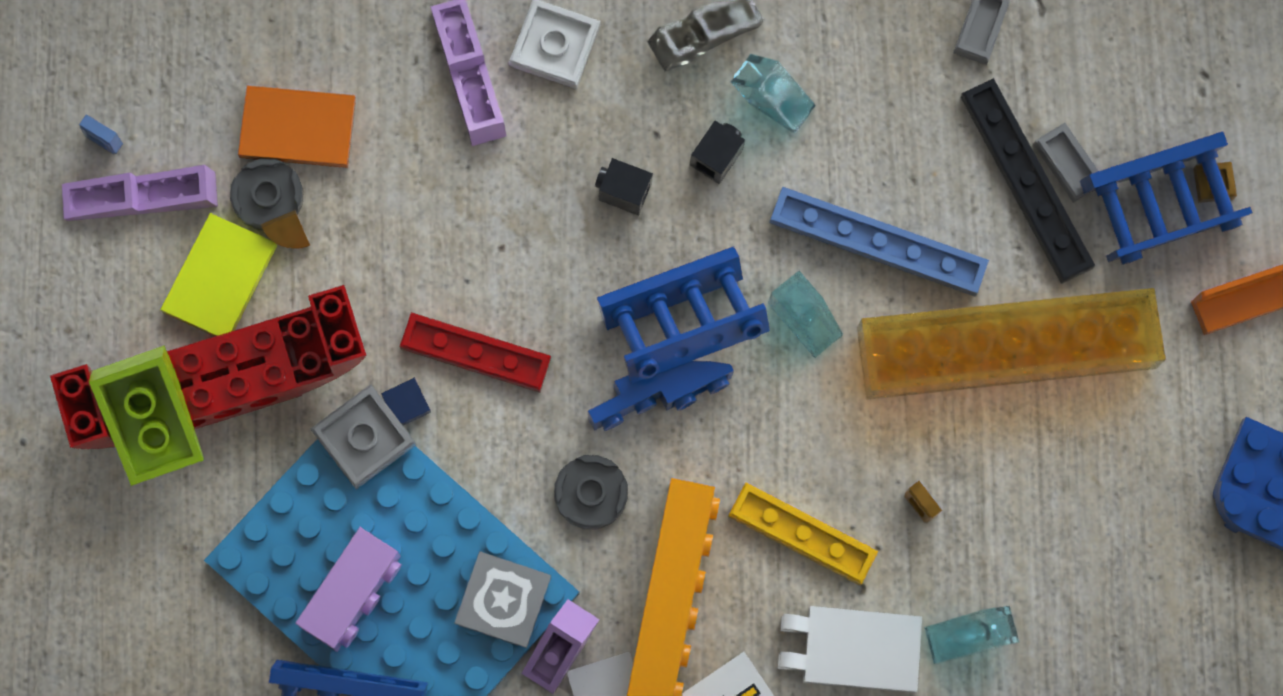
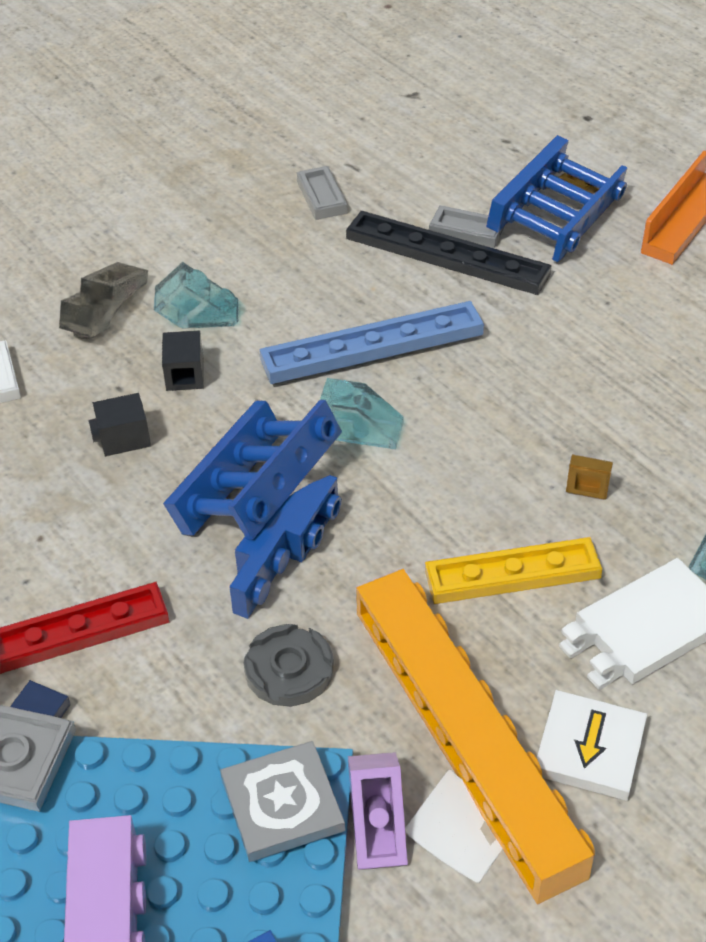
camera: 30 degrees left, 30 degrees down
(1010, 343) = (537, 338): clear yellow brick -> none

